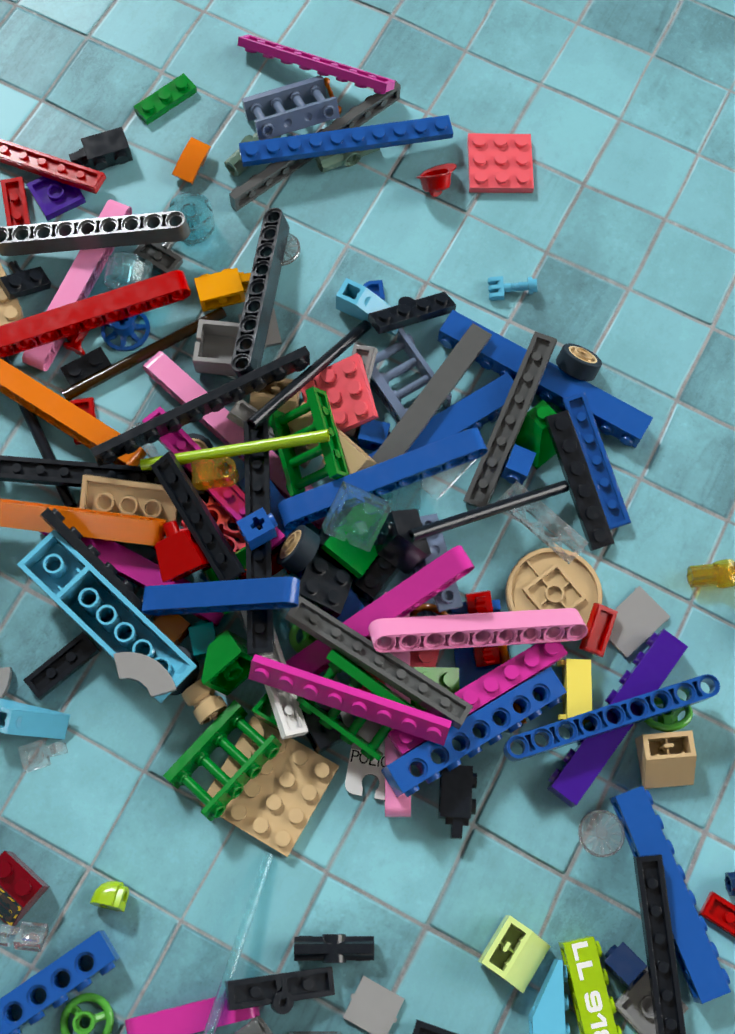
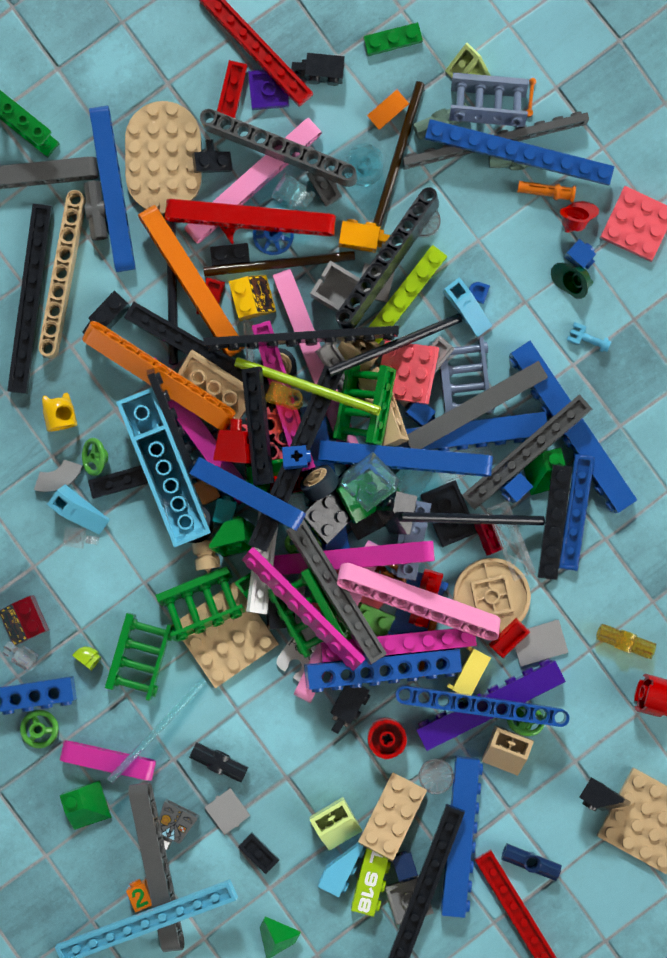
camera: 30 degrees right, 15 degrees up
(23, 645) = (98, 456): none -> bright green piece
(128, 398) = (252, 297): none -> yellow slope
(146, 671) = (173, 520): light grey tile -> none
(155, 879) = (120, 660): none -> green fence
(222, 194) = (398, 154): none -> dark brown piece
(251, 82) = (467, 62): none -> yellowish green slope
(279, 989) = (171, 771): black hinge -> none
(301, 312) = (409, 289): none -> lime plate
(322, 65) = (529, 66): dark pink plate -> none
(401, 166) = (556, 191): none -> orange pin
(411, 312) = (498, 326): black hinge -> none
(459, 212) = (581, 255): none -> blue brick
(462, 237) = (571, 280): none -> dark green piece
(473, 537) = (448, 500): none -> black tile
(514, 529) = (488, 538): none -> dark red plate
(529, 802) = (393, 747): none -> red brick
(577, 909) = (392, 816): none -> tan plate
(578, 362) = (605, 428): black wheel -> none

